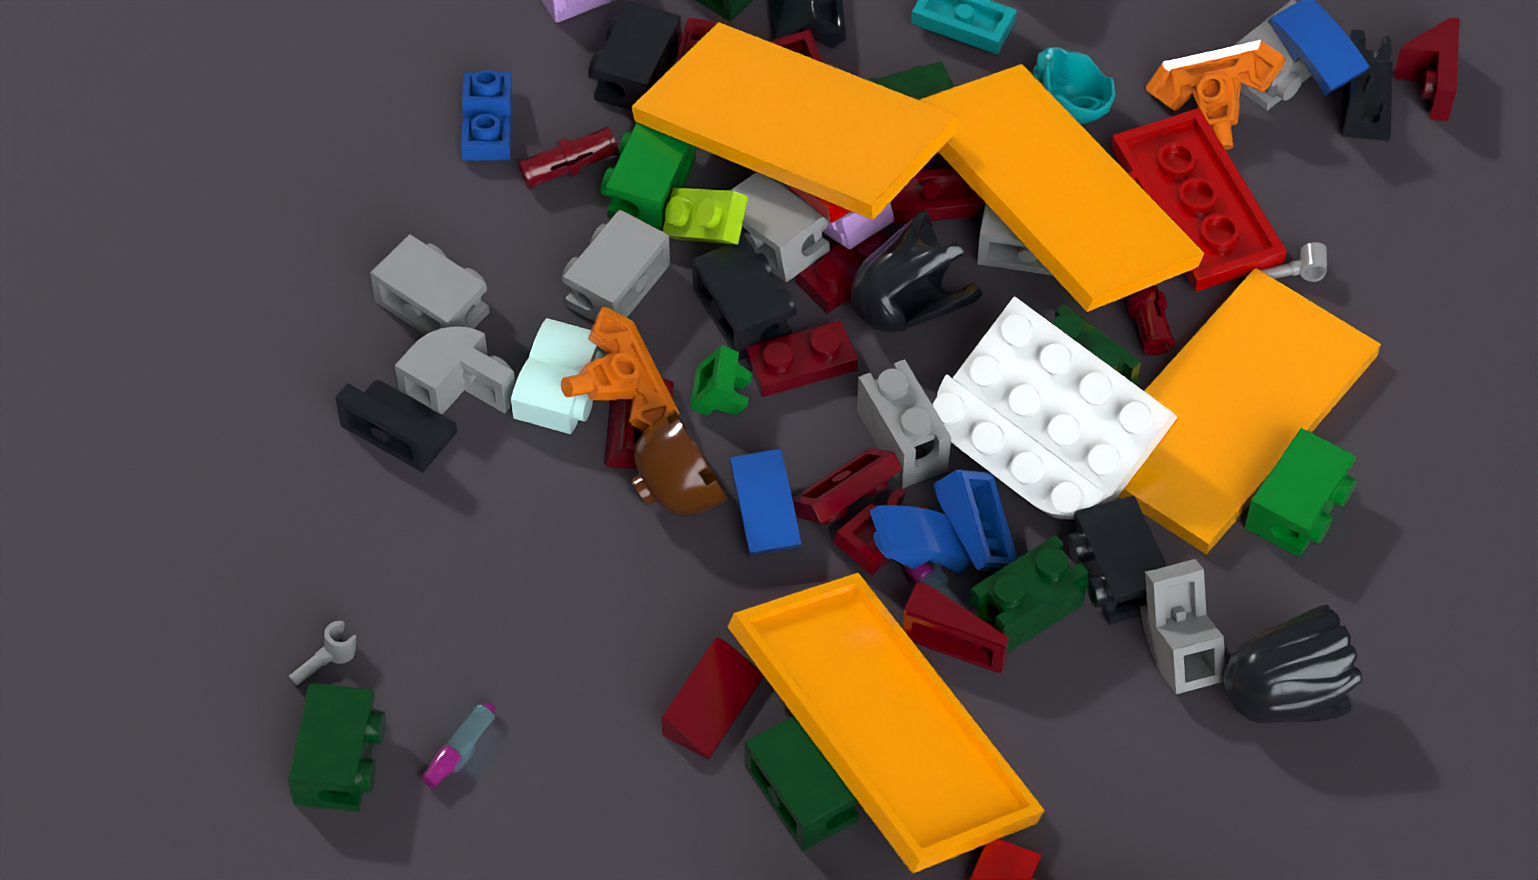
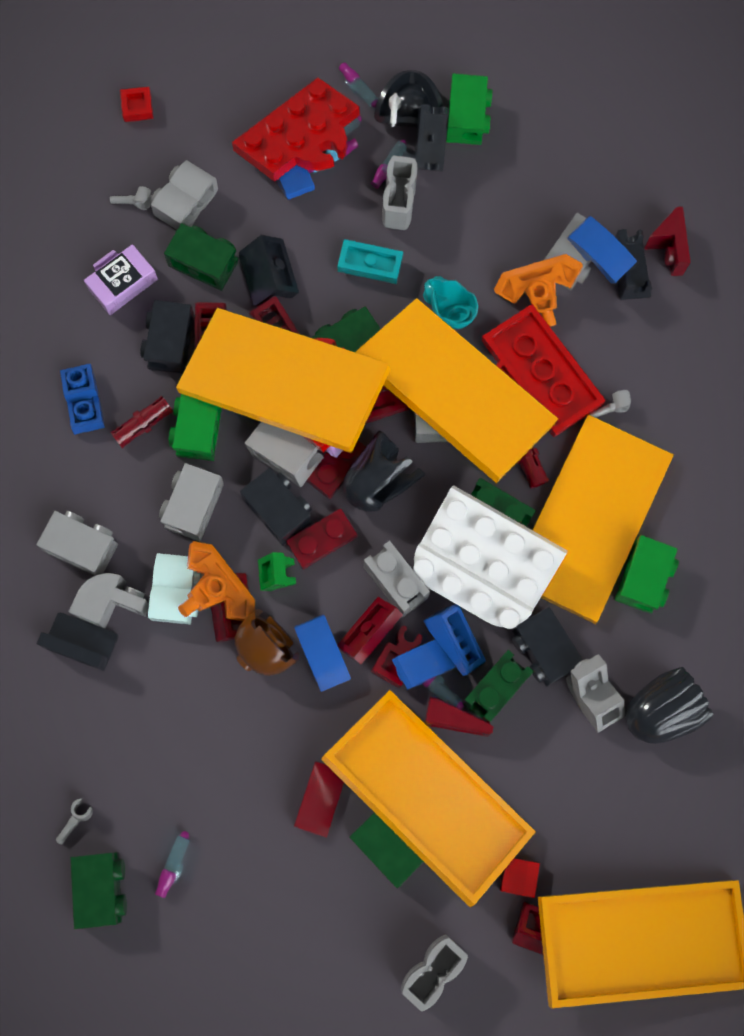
camera: 15 degrees left, 20 degrees up
(705, 215) = (240, 455): lime plate -> none

